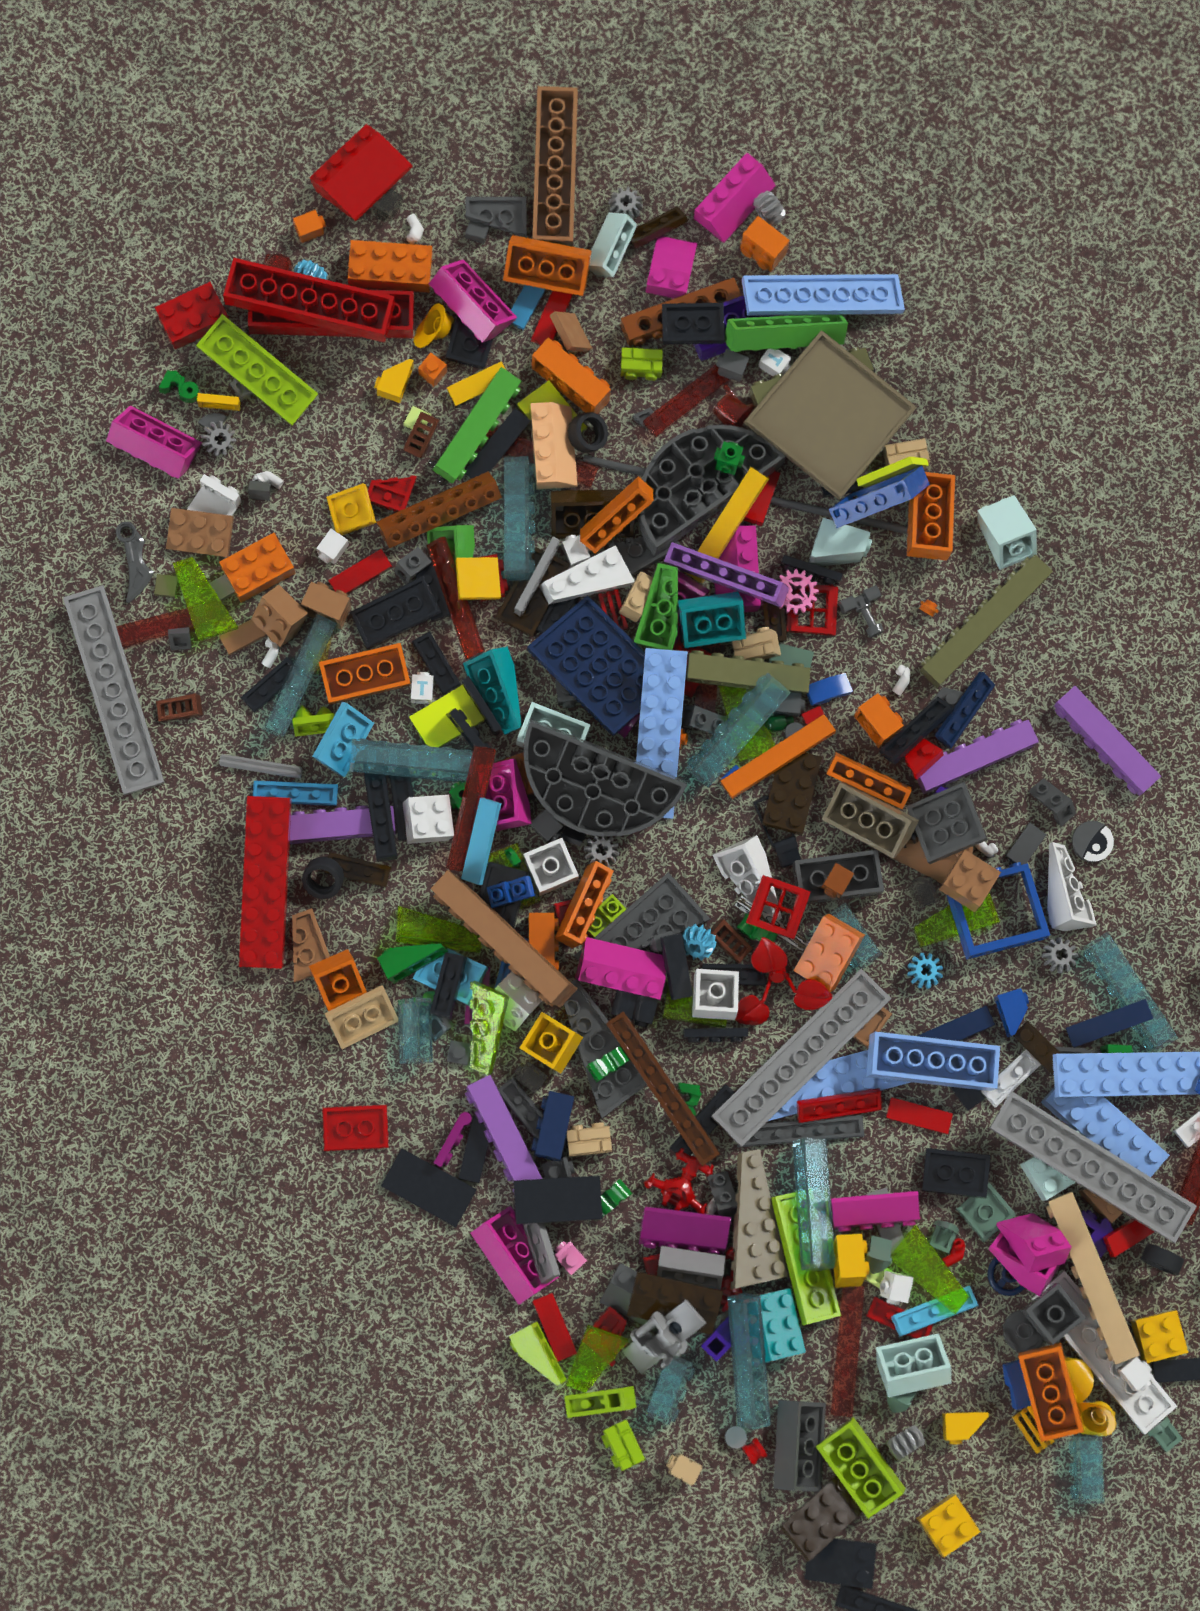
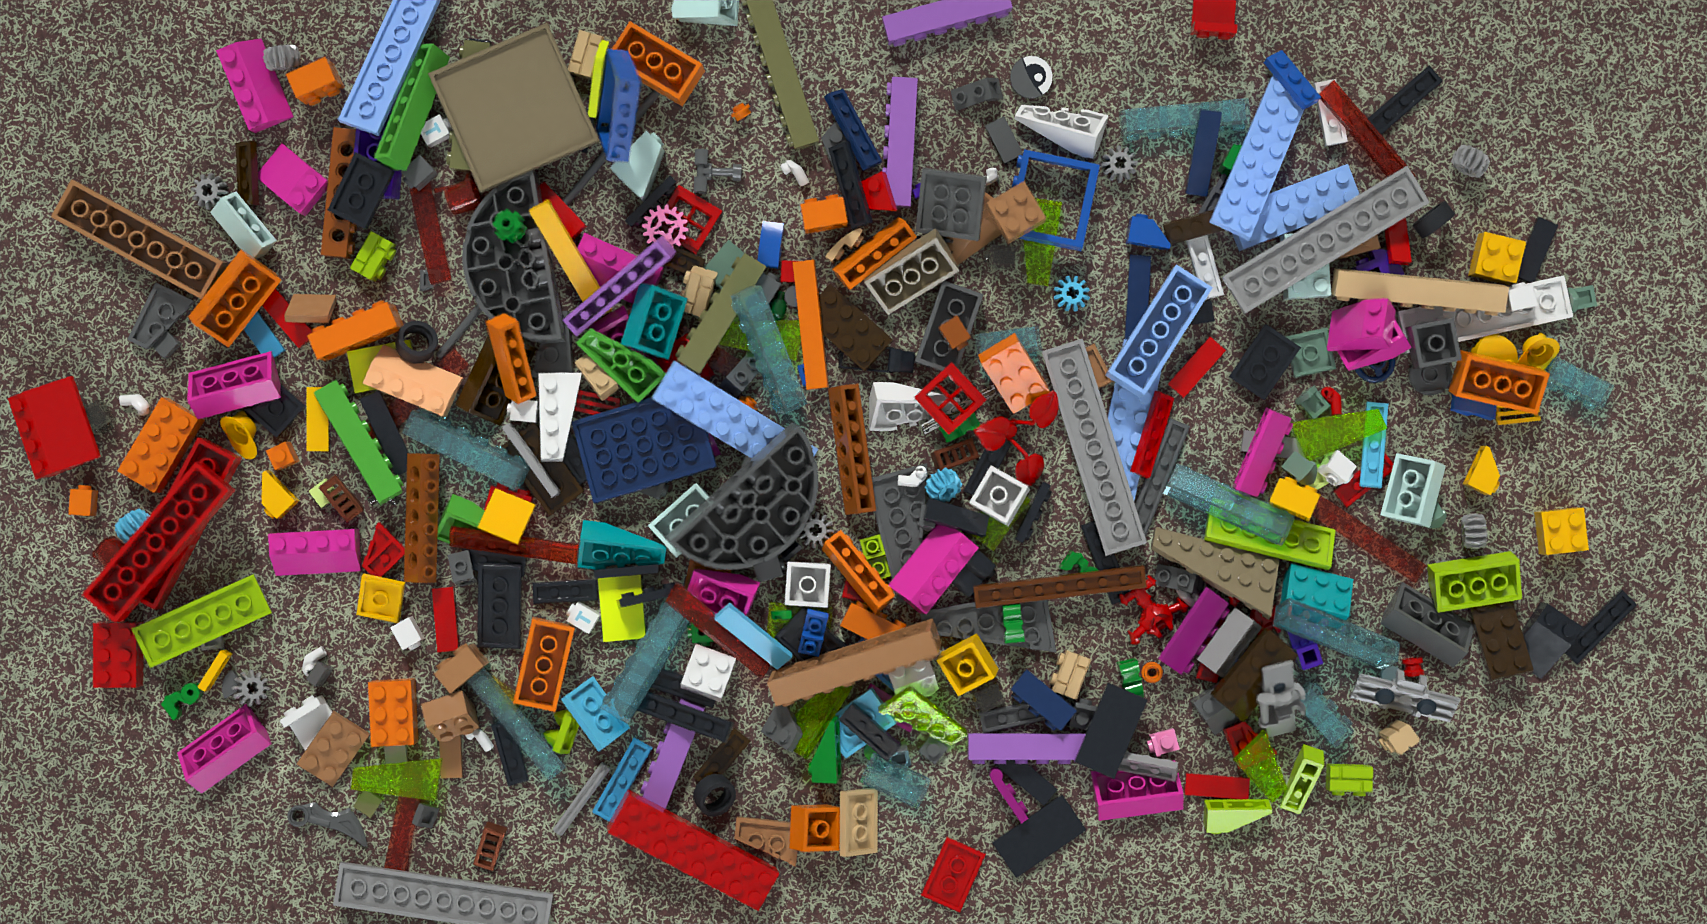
camera: 50 degrees left, 10 degrees up
(363, 436) = (315, 552): none -> dark pink slope
(413, 908) = (783, 728): none -> dark grey wing
(627, 1222) = (1152, 679): none -> orange plate
(688, 846) = (851, 449): none -> dark orange brick
(691, 914) = (914, 479): none -> white arm
(729, 1478) = (1405, 696): none -> light grey piece
(867, 753) = (850, 240): none -> tan slope

